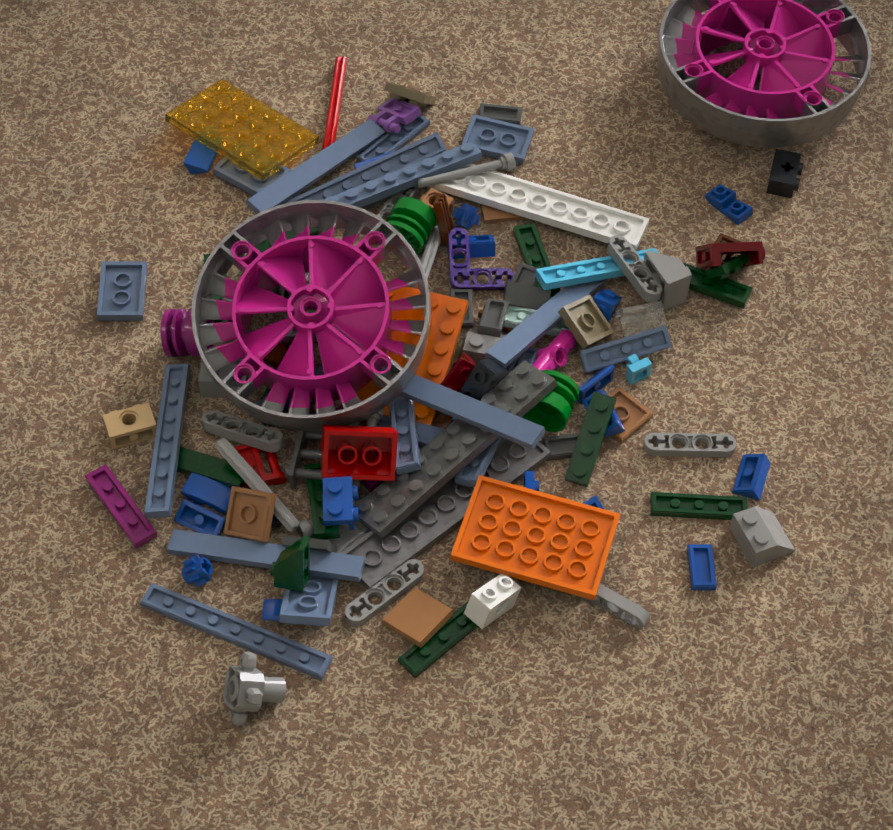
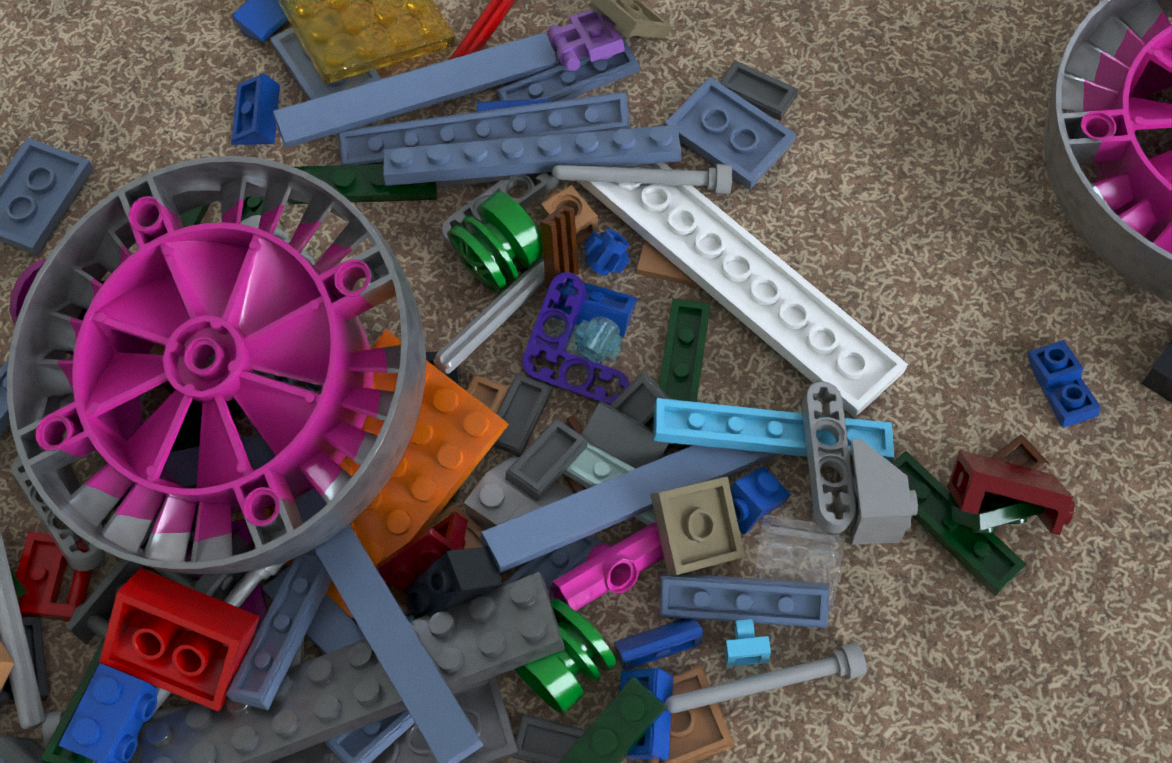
camera: 30 degrees right, 10 degrees up
(223, 209) = (254, 111): none -> blue slope
(485, 257) = (598, 339): none -> clear light blue gear
(688, 359) = (846, 662): none -> light grey piece

